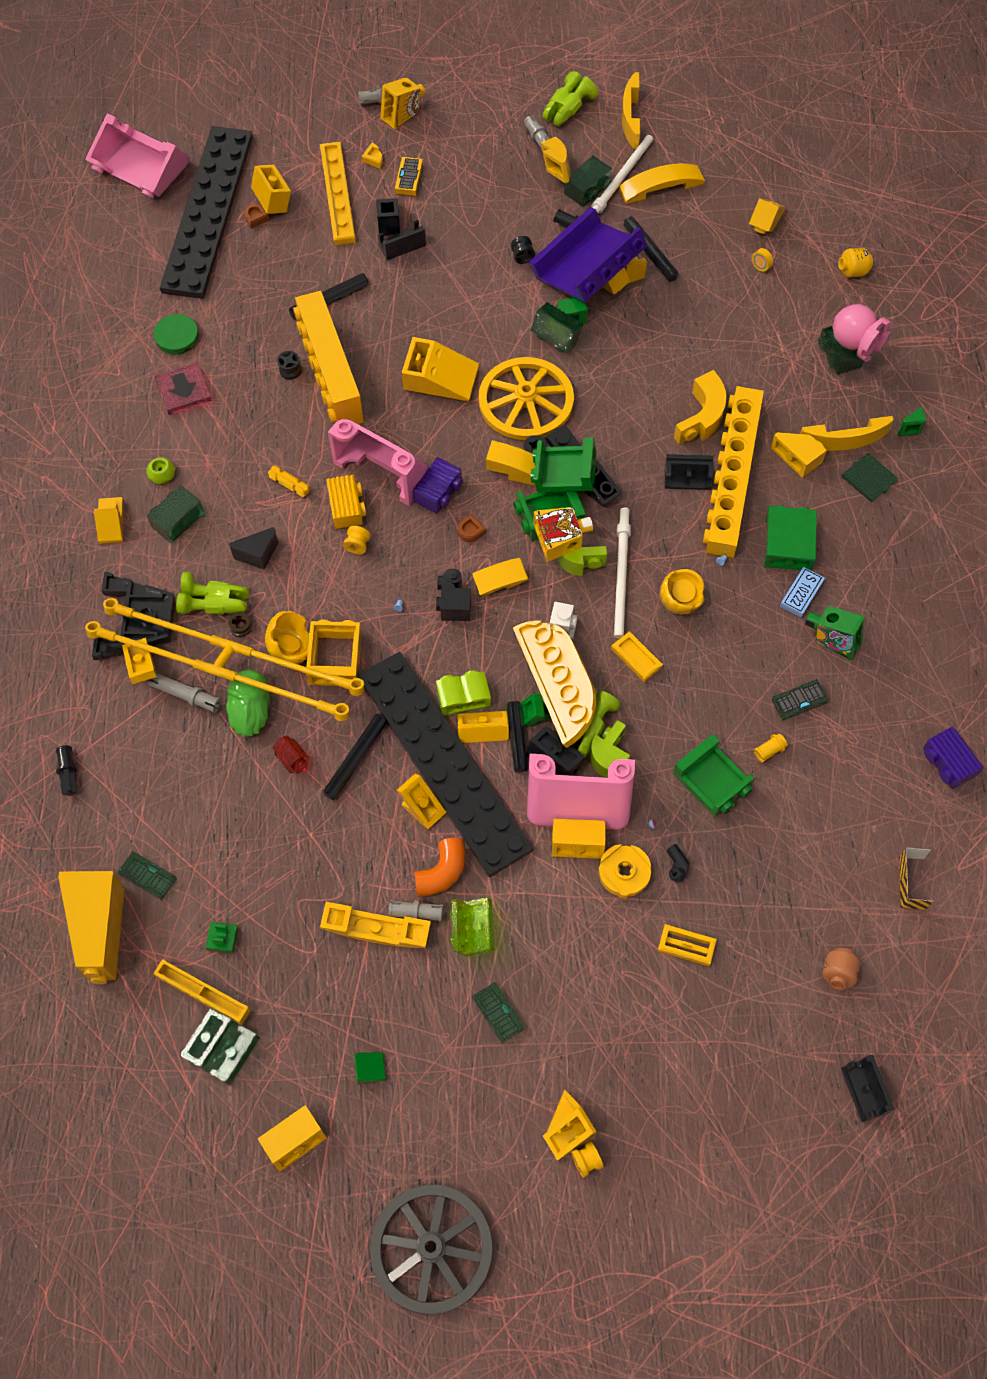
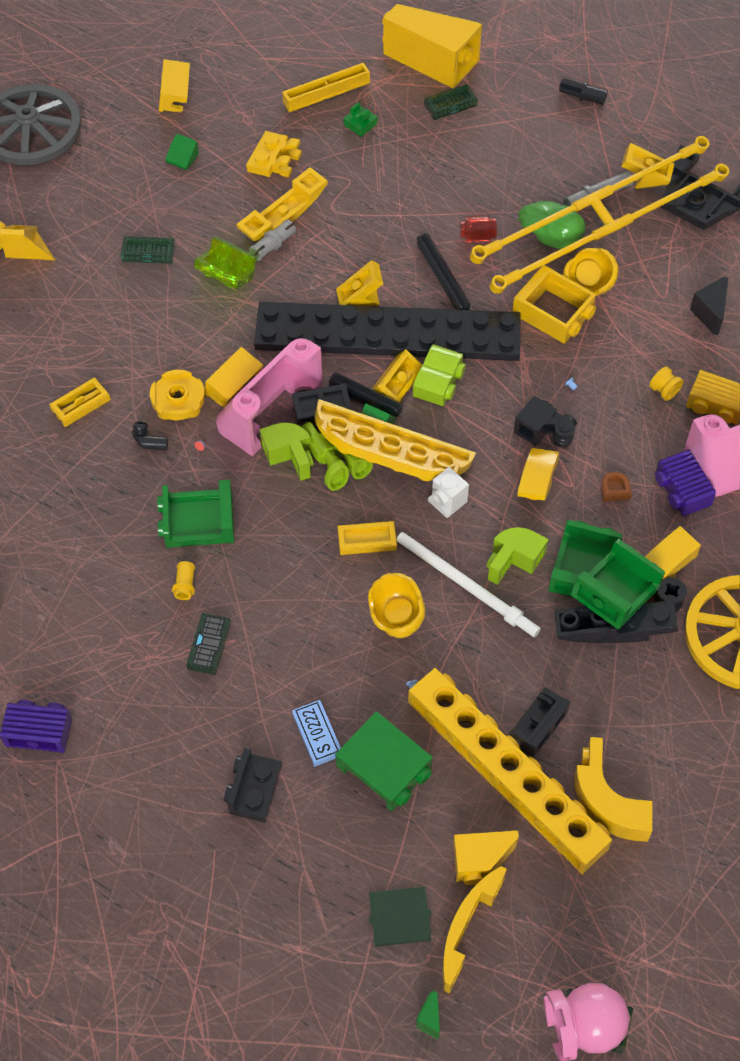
camera: 125 degrees right, 5 degrees down
(219, 597) = (679, 253): lime piece -> none
(220, 1046) = (273, 80): clear green slope -> none
(234, 619) = (642, 265): dark brown bush -> none
(318, 989) = (274, 155): none -> yellow plate
(445, 872) = (286, 273): orange cylinder -> none
(560, 531) = (541, 529): torso -> none
(838, 630) = (243, 718): green torso -> none
(870, 601) = (253, 786): none -> black bracket

